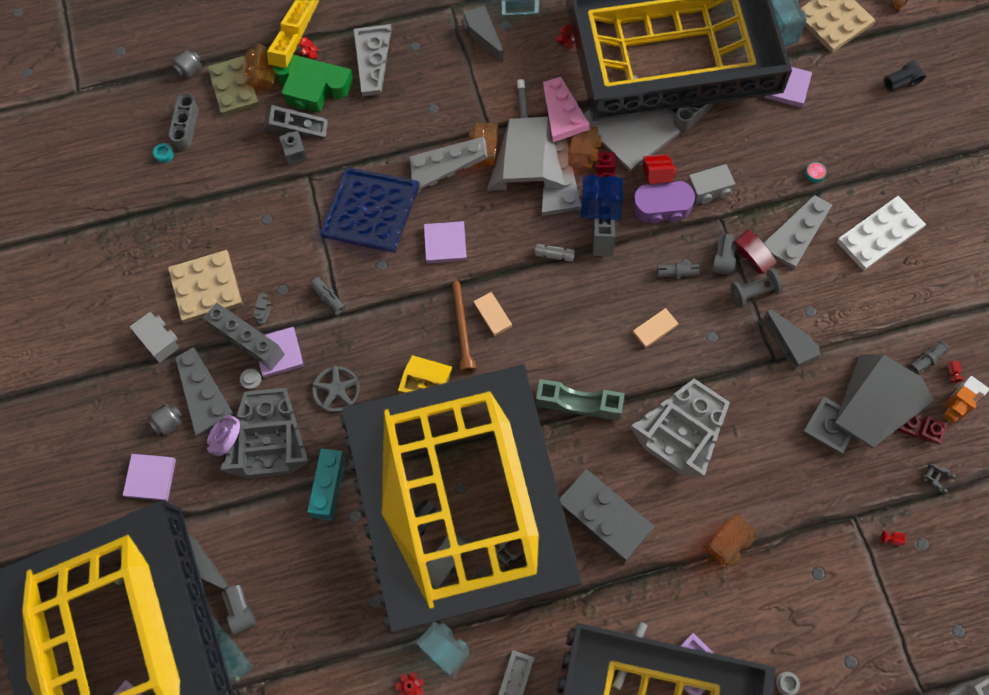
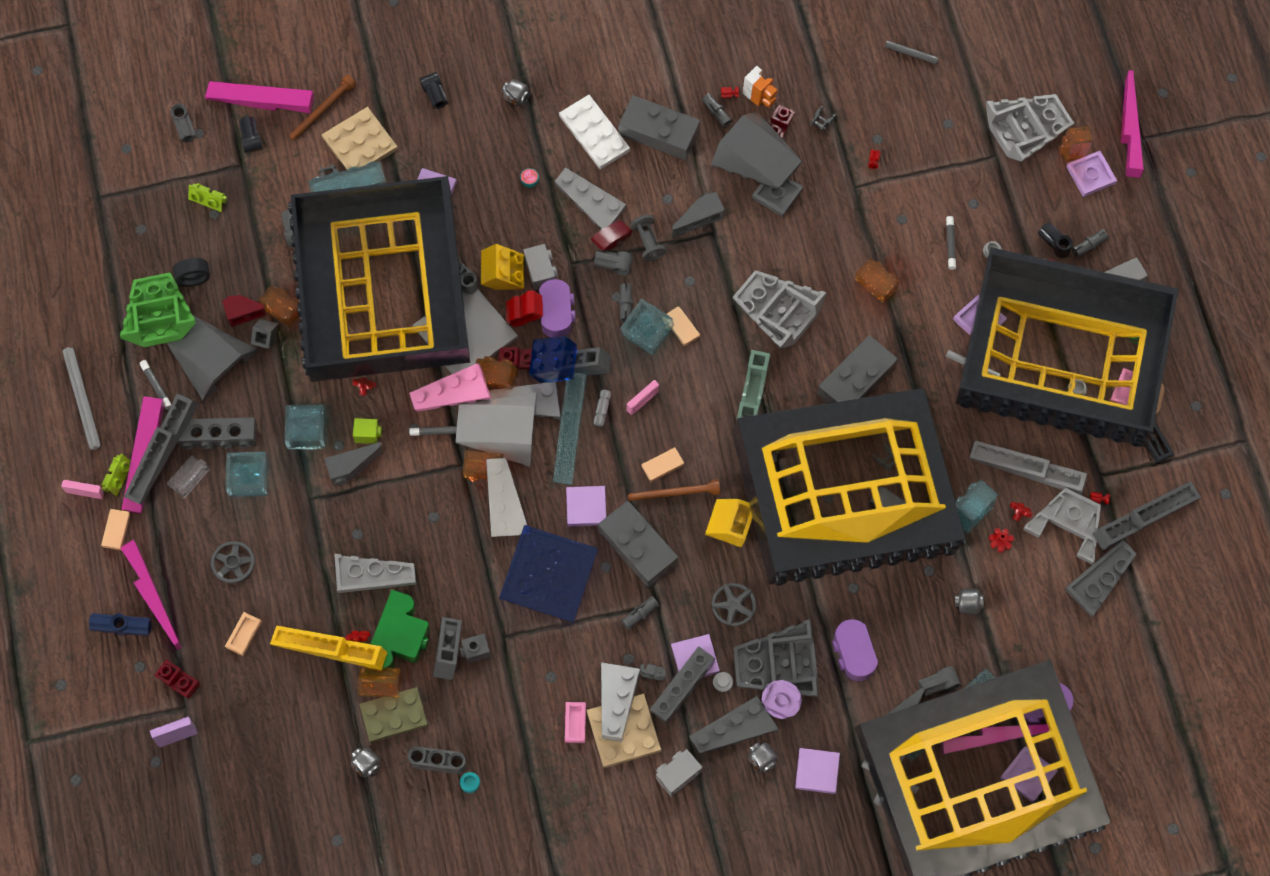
camera: 90 degrees left, 0 degrees up
(216, 241) = (575, 722): none -> bright pink tile
(238, 275) = (617, 692): none -> light grey wing
(277, 515) = (855, 650): none -> medium lavender brick
(326, 484) = (827, 607): teal brick -> none
(331, 645) = (969, 601): none -> flat silver head
(400, 289) = (638, 544): none -> dark grey brick
(517, 42) = (366, 431): none -> lime brick
(531, 222) = (569, 429): none -> clear light blue slope
(567, 290) = (643, 397): none -> bright pink tile
(647, 288) = (647, 326): none -> clear light blue brick
(704, 149) = (502, 268): none -> yellow slope
(793, 631) = (951, 243): none -> dark grey bar
(895, 295) = (659, 127): none -> dark grey brick
(915, 152) = (515, 92): none -> flat silver head

